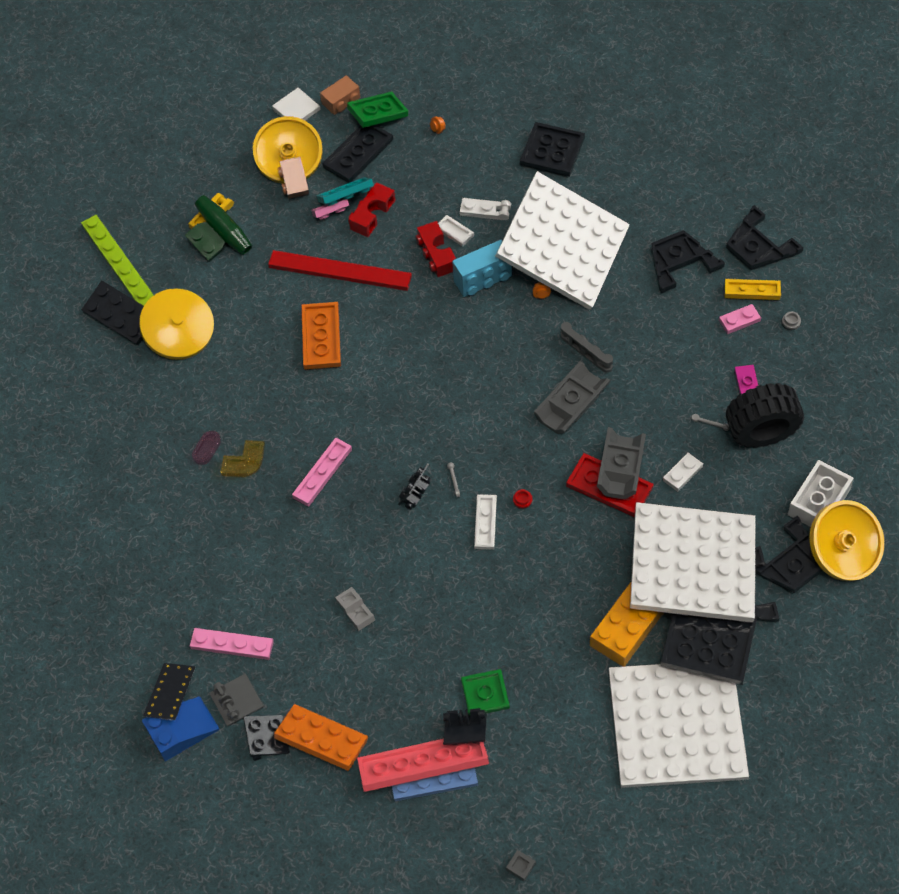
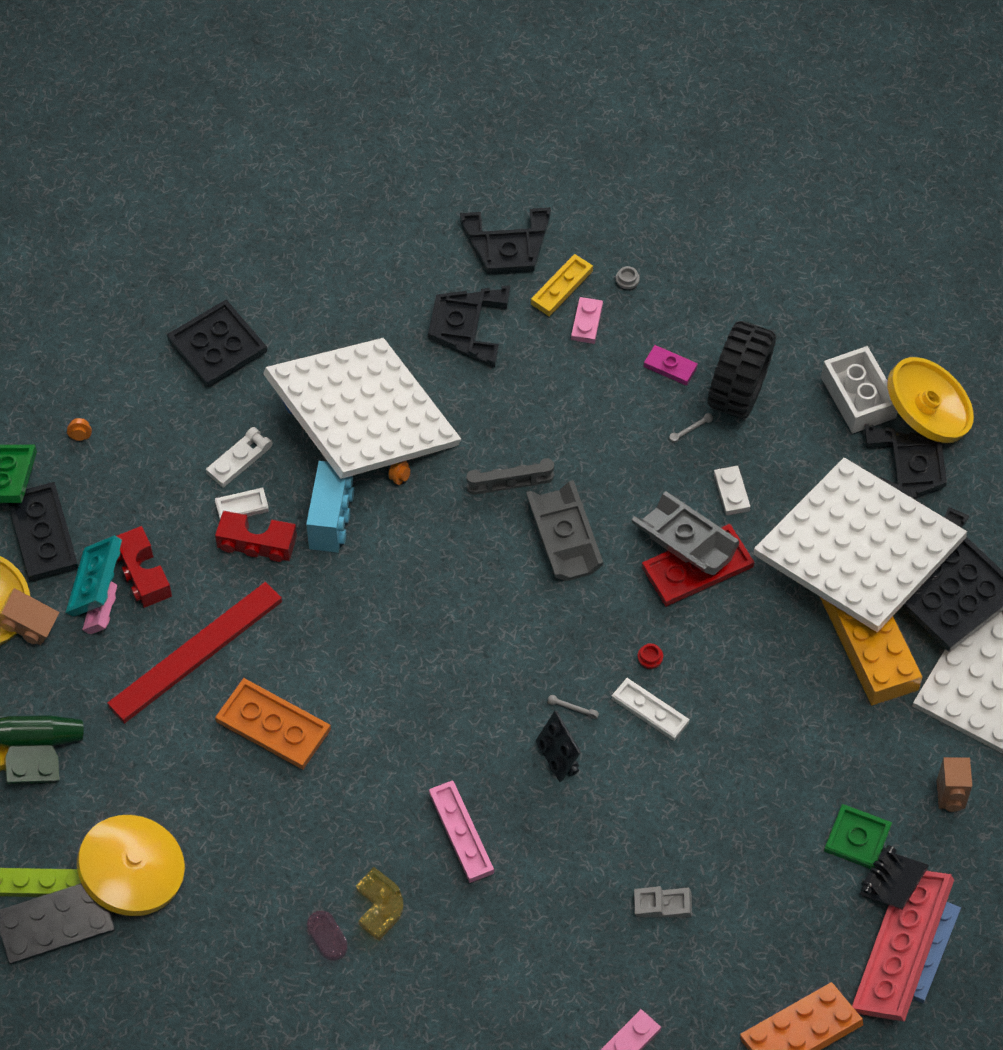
camera: 60 degrees left, 0 degrees up
(560, 723) = (954, 783): none -> nougat brick

